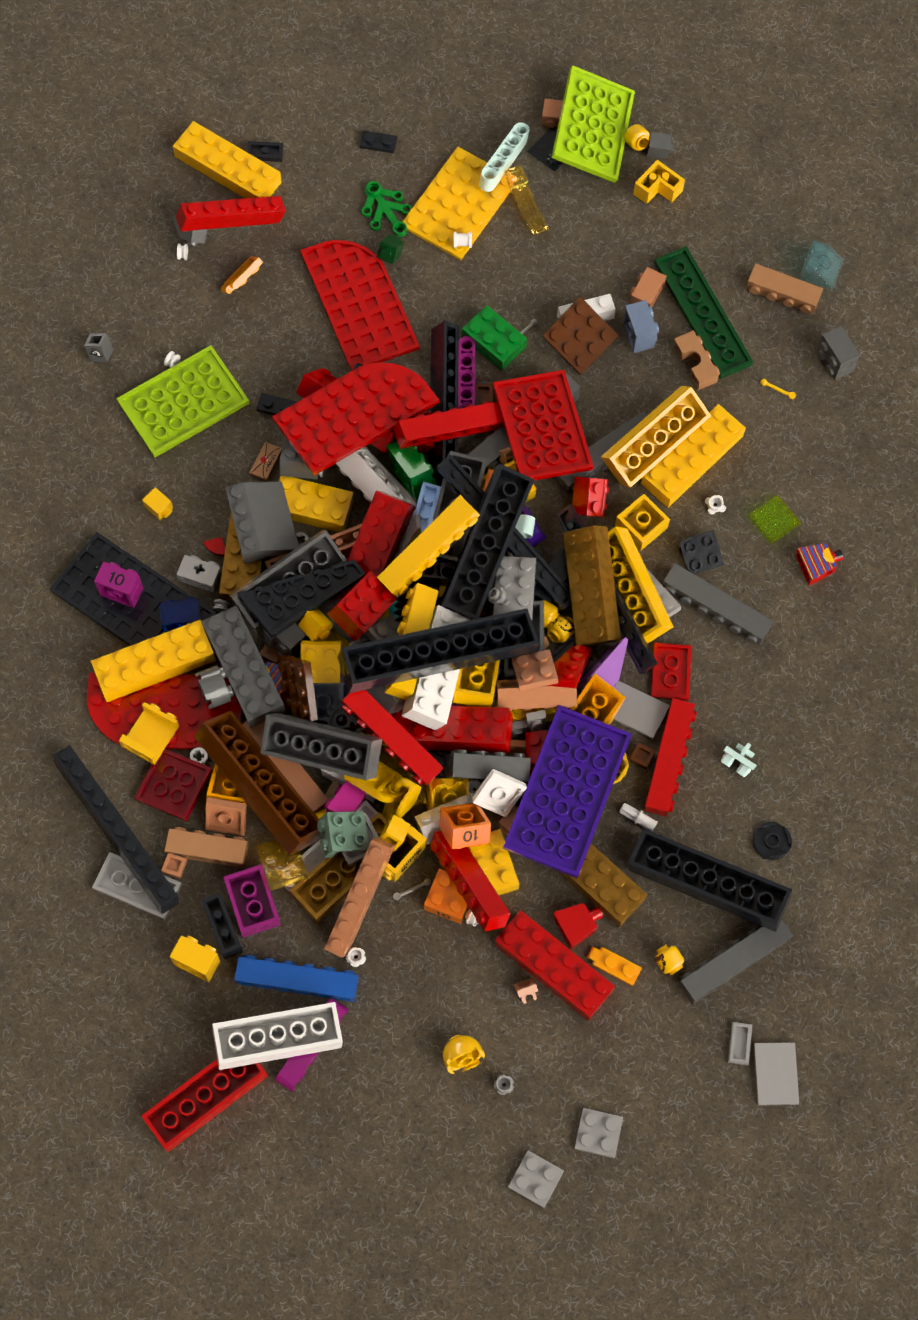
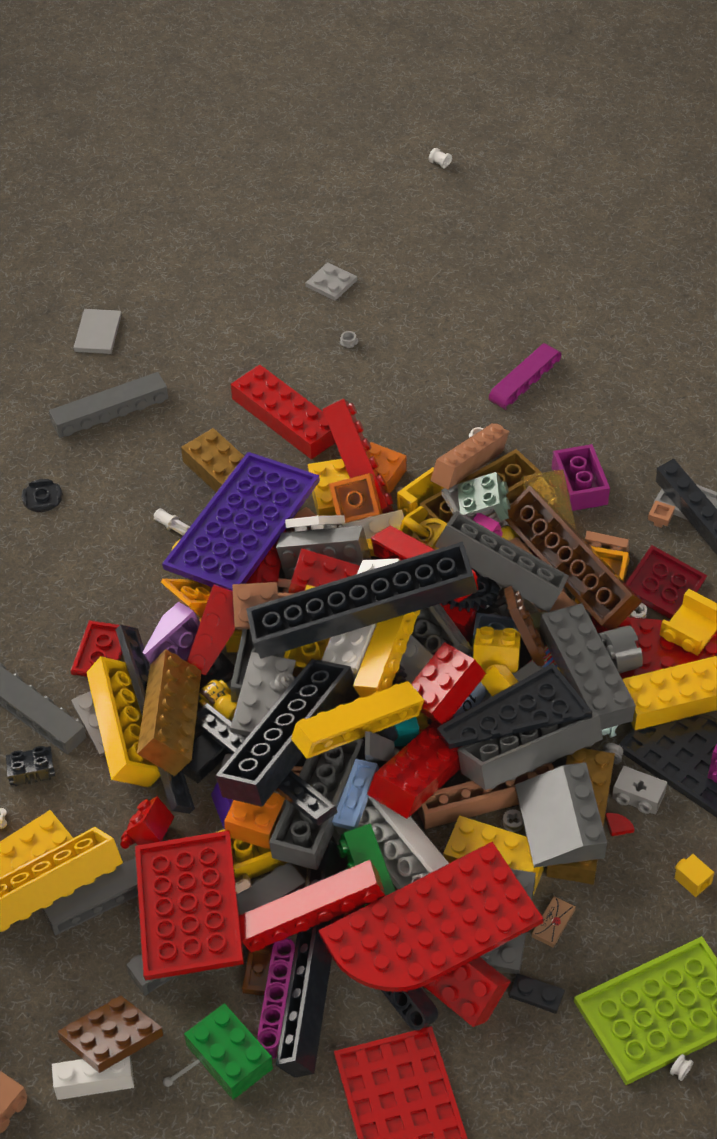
camera: 170 degrees left, 20 degrees down
(179, 613) = (661, 735): clear blue brick -> none
(195, 958) = (638, 434): yellow brick -> none
(200, 1101) = (627, 343): red brick -> none
(207, 848) = (637, 528): medium nougat brick -> none
(222, 925) = (612, 461): black brick -> none
(277, 1035) = (558, 358): white brick -> none
(296, 979) = (538, 420): blue brick -> none
(395, 831) = (430, 495): yellow brick -> none
(462, 1052) = (384, 355): yellow cylinder -> none
(525, 988) = (317, 397): nougat tile -> none
(577, 923) = (257, 439): red torso -> none
(598, 1133) = (269, 305): light grey plate -> none
(614, 965) = (226, 414): light orange hinge -> none
(640, 326) = (23, 1038): sand blue brick -> none
(640, 711) = (141, 612): light grey tile -> none
(642, 755) = (153, 573): reddish brown plate -> none
(643, 521) = (90, 795): yellow brick -> none
(669, 757) = (124, 568): red brick -> none
(669, 959) = (172, 409): yellow head -> none
(710, 880) = (117, 451): black brick -> none
(740, 1043) = (124, 353): light grey tile -> none
(746, 765) = (50, 560): light aqua hips -> none

